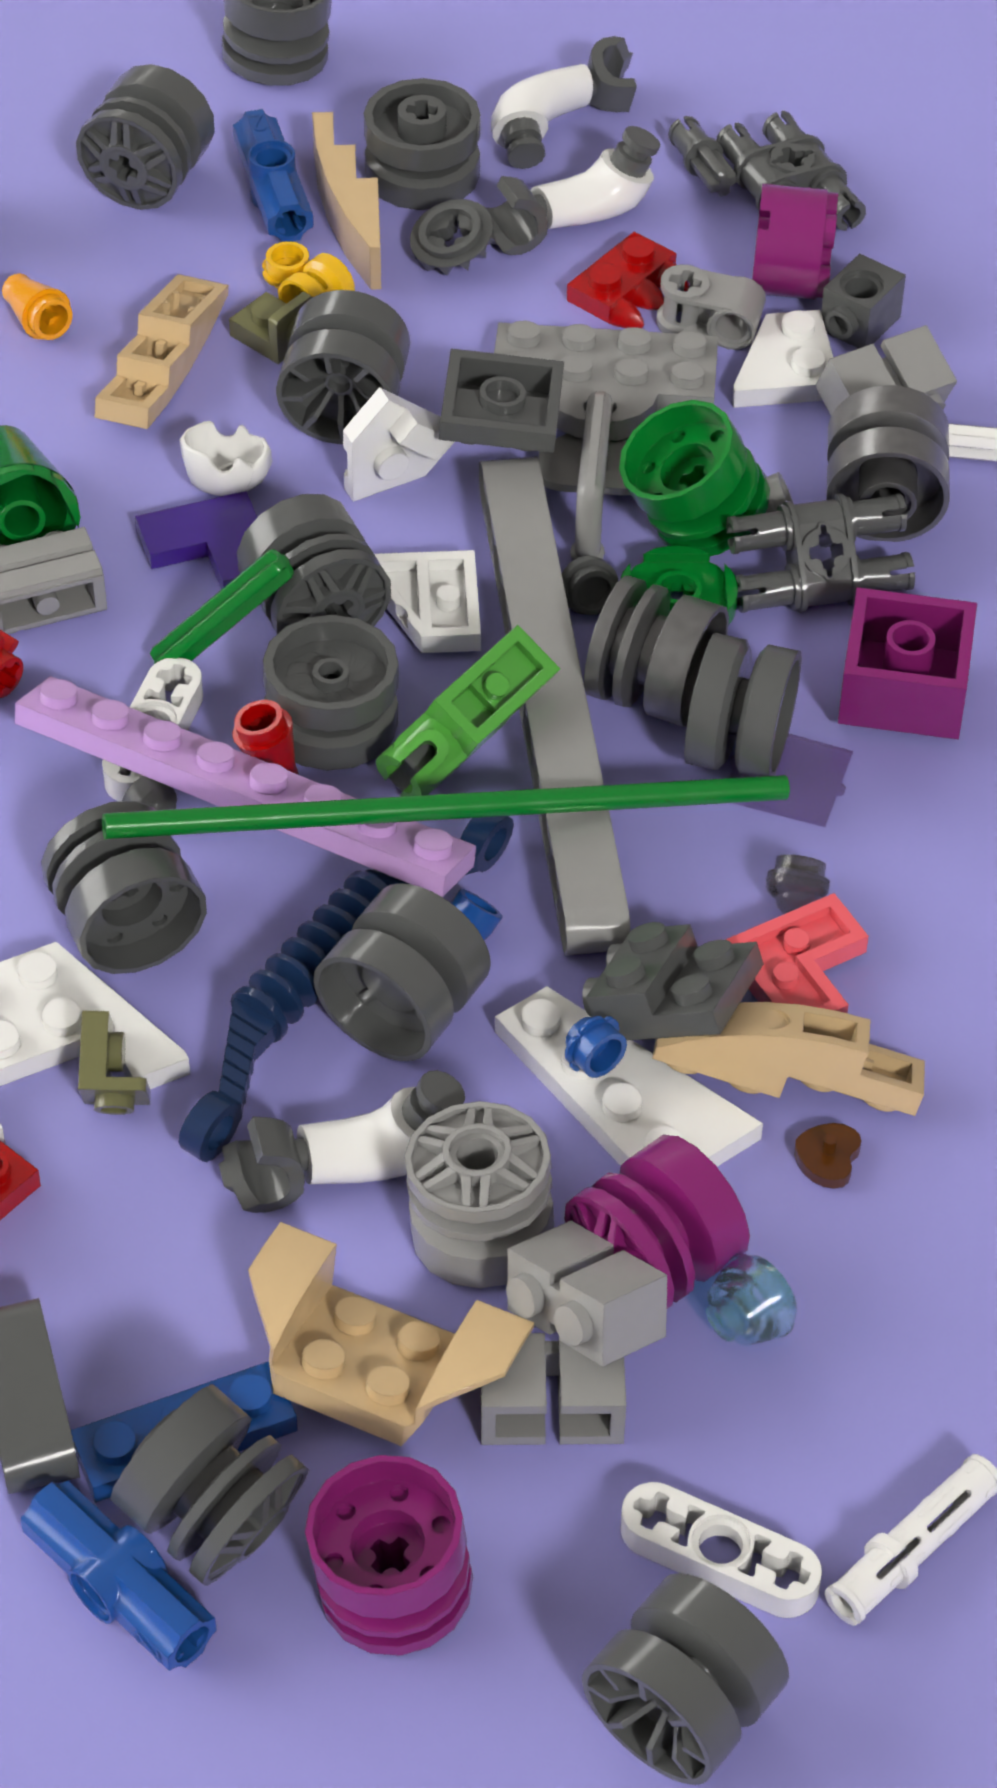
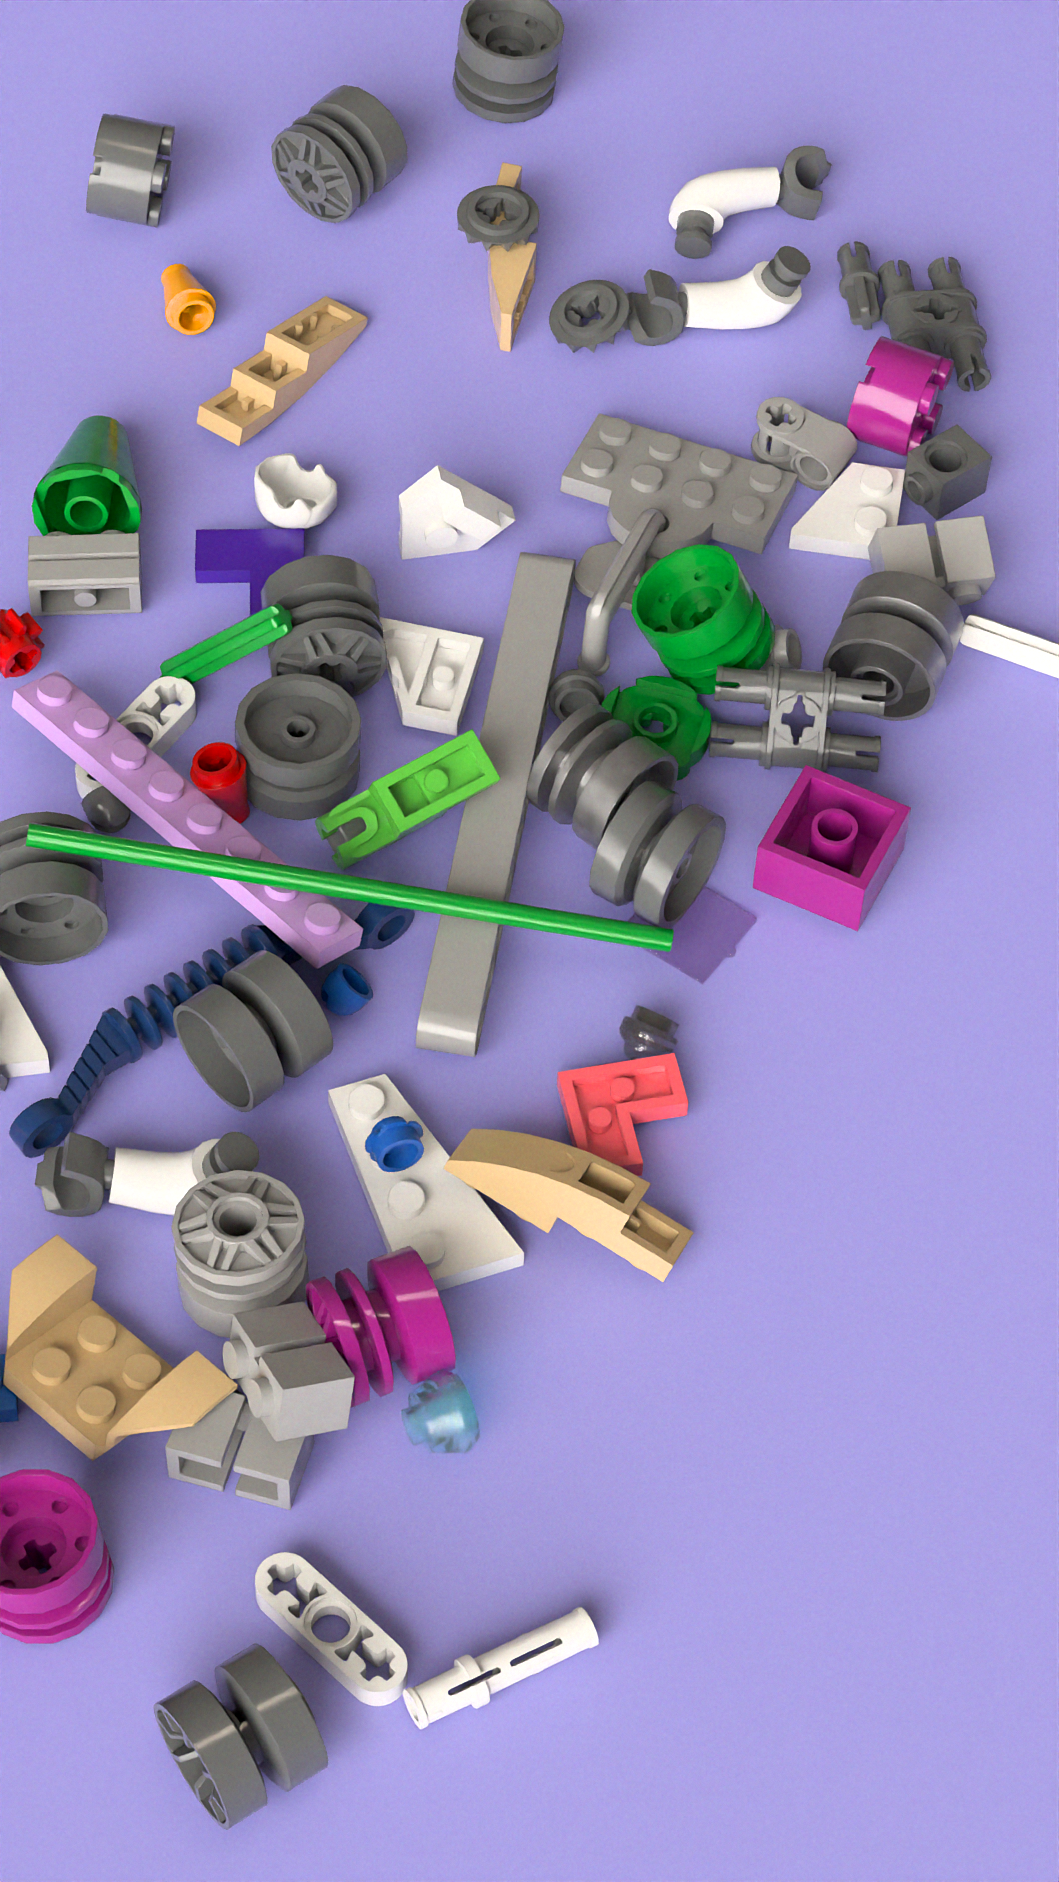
camera: 15 degrees right, 5 degrees up
(267, 324) = (395, 368): olive bracket -> none
(272, 176) = (444, 245): blue piece -> none
(283, 261) = (428, 310): yellow plate -> none
(313, 151) = (486, 204): none -> dark grey gear
(319, 276) = (443, 342): yellow wheel -> none
(338, 358) = (429, 419): dark grey wheel -> none
(422, 142) = (595, 215): dark grey wheel -> none
(501, 400) = (554, 500): dark grey plate -> none
(623, 281) = (734, 396): red plate -> none
(669, 985) = (486, 1102): dark grey plate -> none
(827, 1153) = (573, 1294): reddish brown piece -> none

